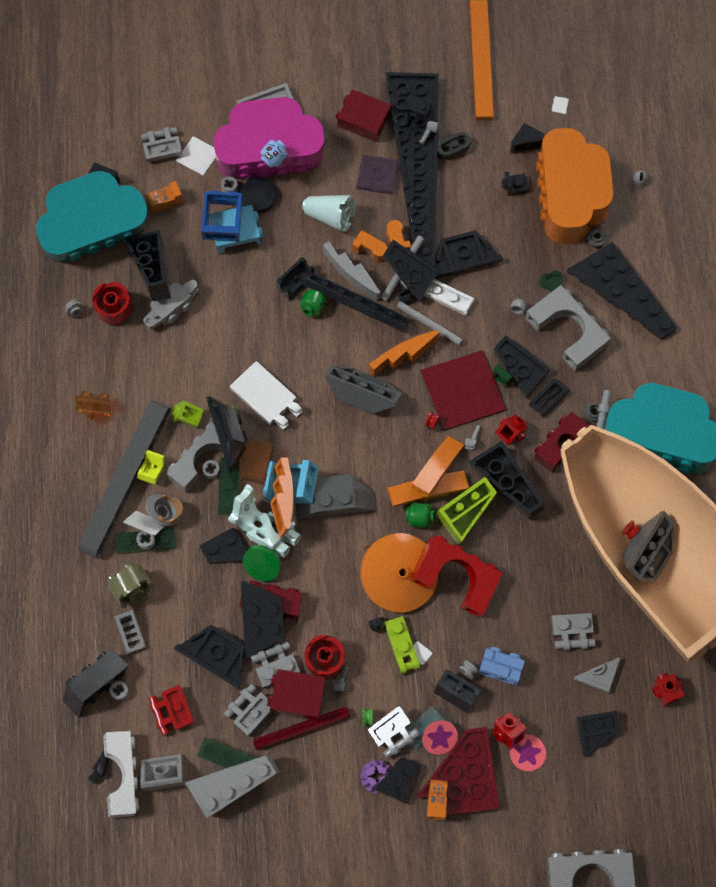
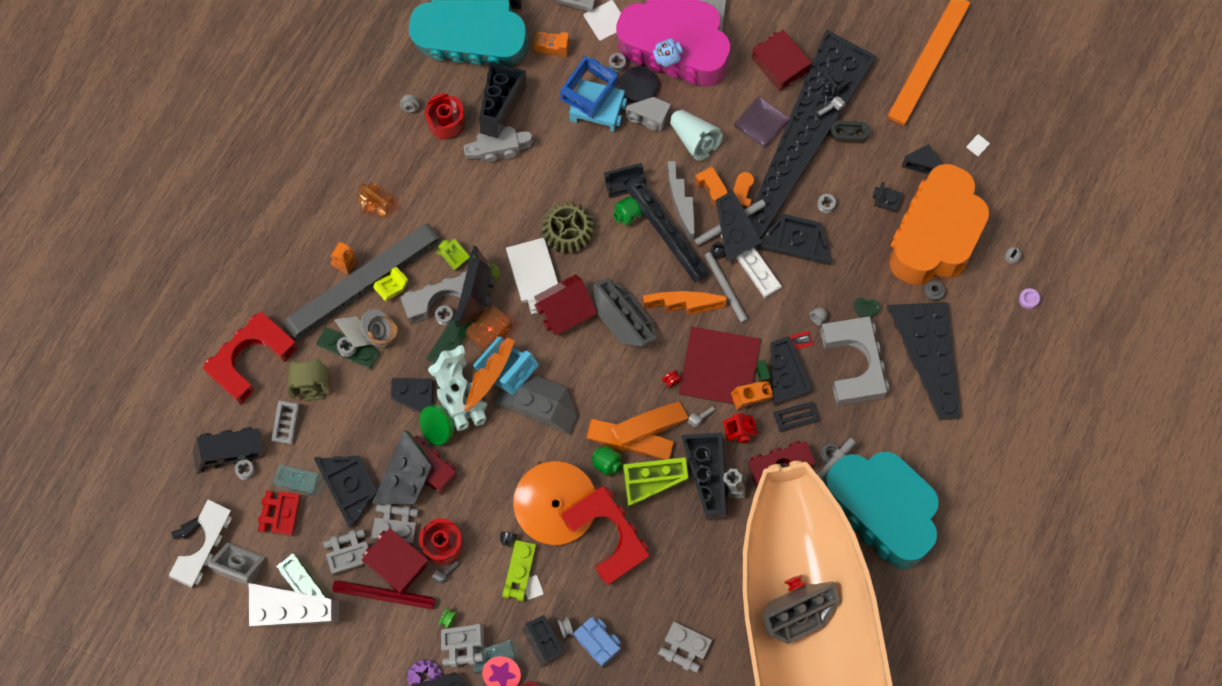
camera: 30 degrees right, 0 degrees up
(60, 568) = (258, 331): none -> red arch
(97, 467) = (343, 258): none -> orange leg
(168, 674) = (296, 479): none -> clear light blue plate
(263, 342) = (579, 236): none -> olive gear
(282, 213) = (649, 112): none -> light grey slope
(309, 406) = (564, 305): none -> dark red brick
(469, 207) = (826, 210): none -> light grey bush
(504, 398) = (751, 394): none -> orange leg
(516, 333) = (801, 340): none -> sticker
(536, 476) = (735, 483): none -> light grey piece
(673, 206) = (1029, 298): none -> lavender tile

